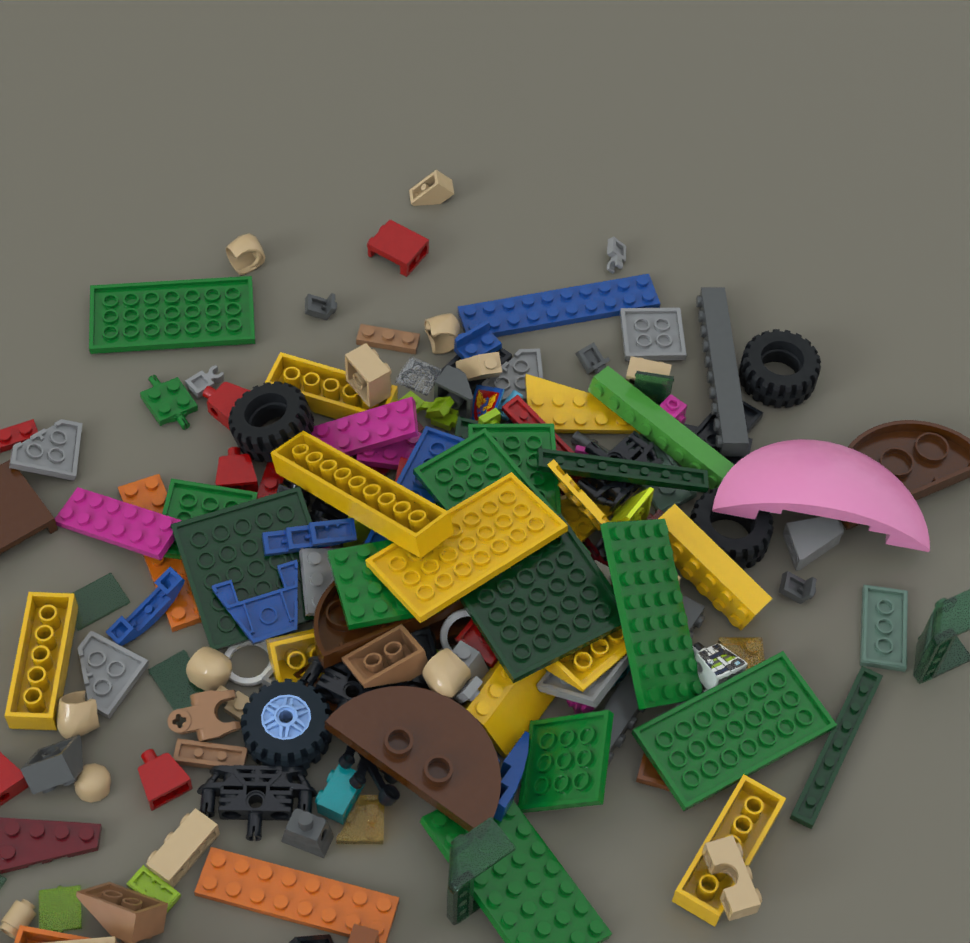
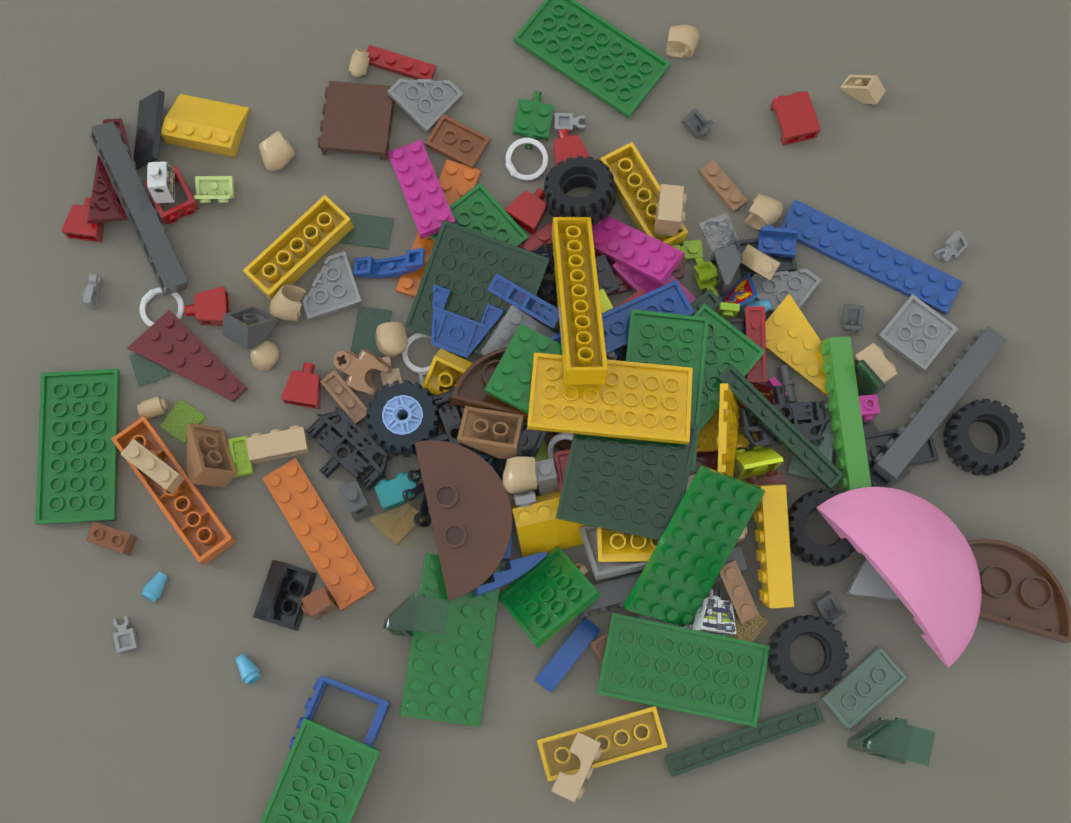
camera: 45 degrees right, 20 degrees up
(114, 465) = (457, 141): none -> dark orange plate
(188, 453) = (512, 170): none -> white piece
(627, 807) = (567, 654): none -> blue slope
(716, 630) = (738, 592): none -> medium nougat plate
(829, 612) = (833, 649): none -> black tyre

